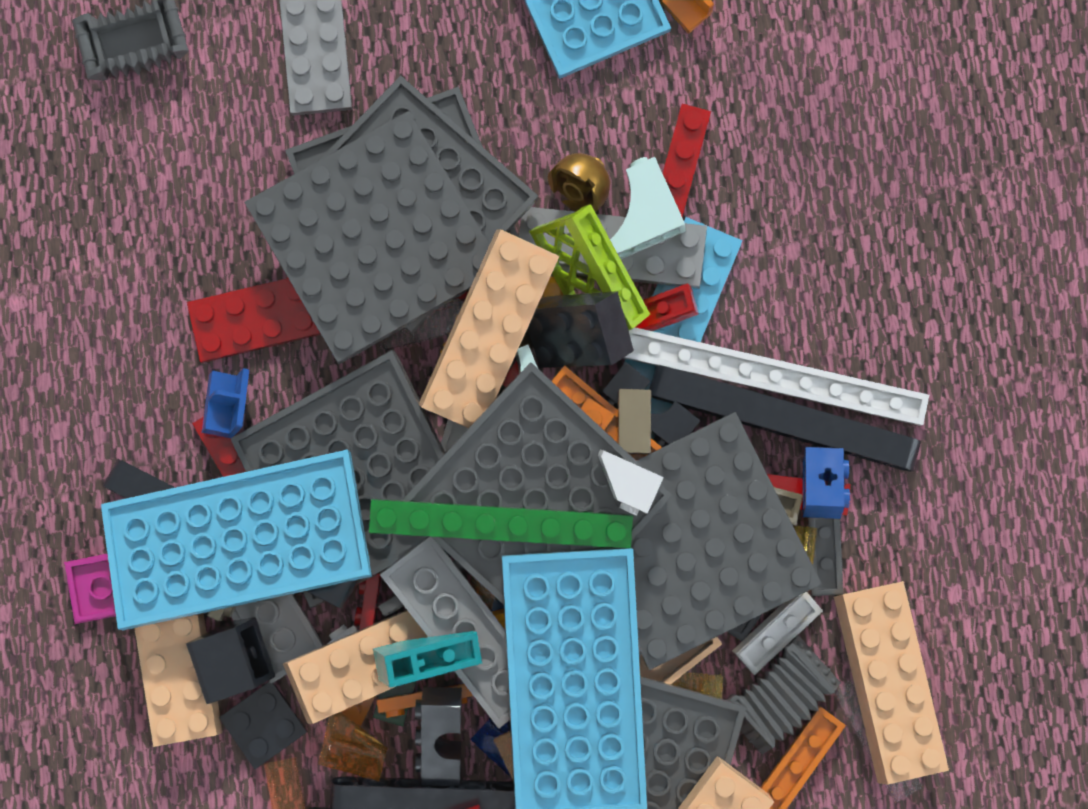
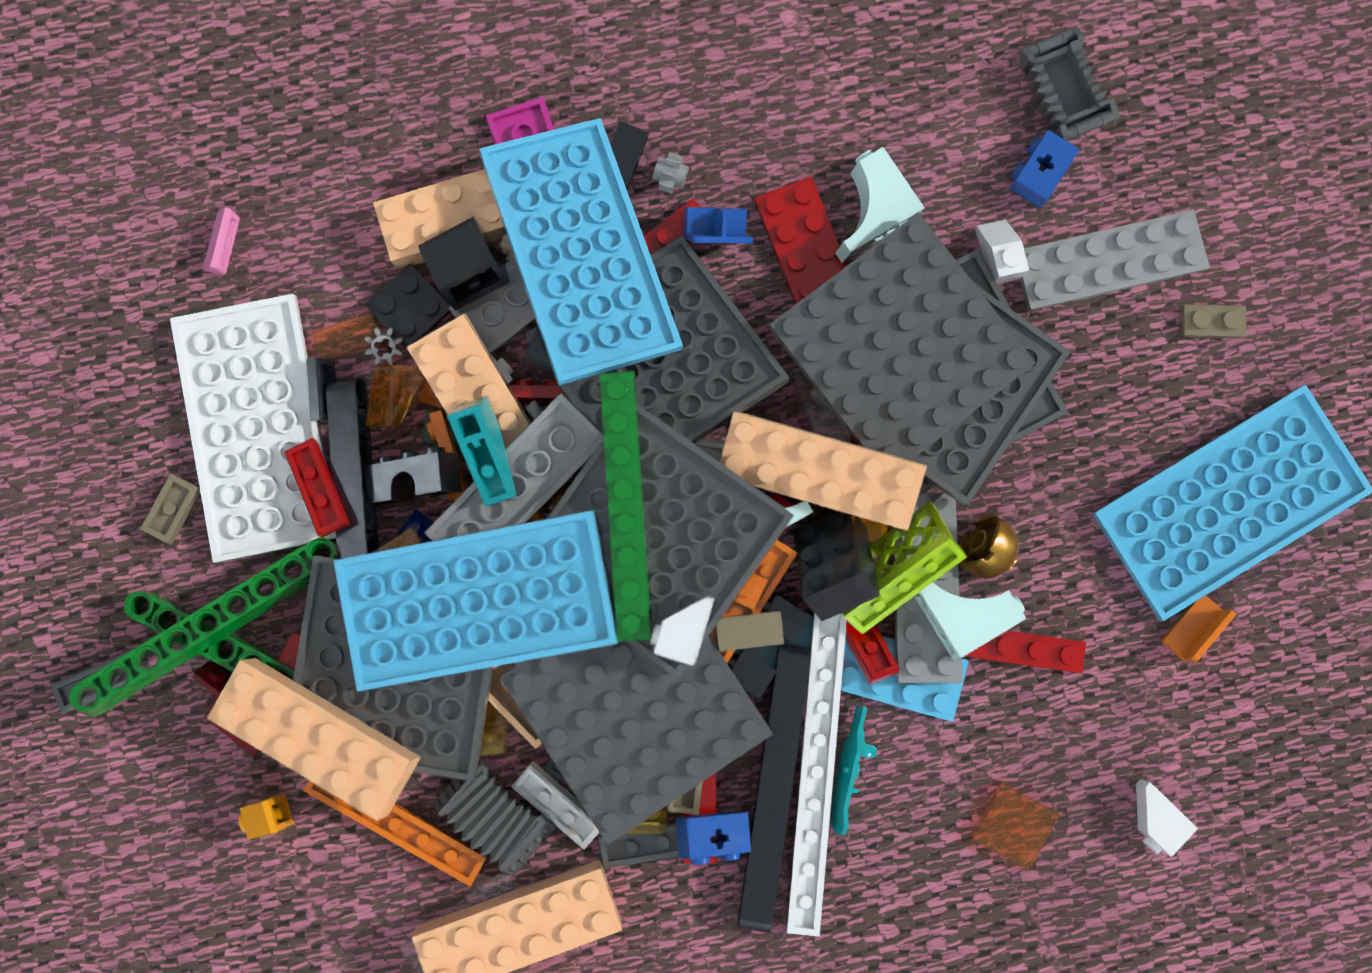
camera: 85 degrees right, 0 degrees up
(163, 442) = (670, 172): none -> light grey gear
(203, 58) = (1055, 155): none -> blue brick
(223, 233) = (884, 200): none -> light aqua arch
(289, 126) = (1002, 251): none -> white slope
(310, 750) = (379, 338): none -> light grey gear
(777, 345) = (848, 771): none -> teal piece
(847, 196) = (1014, 826): none -> clear orange tile
(858, 59) = (1161, 821): none -> white slope

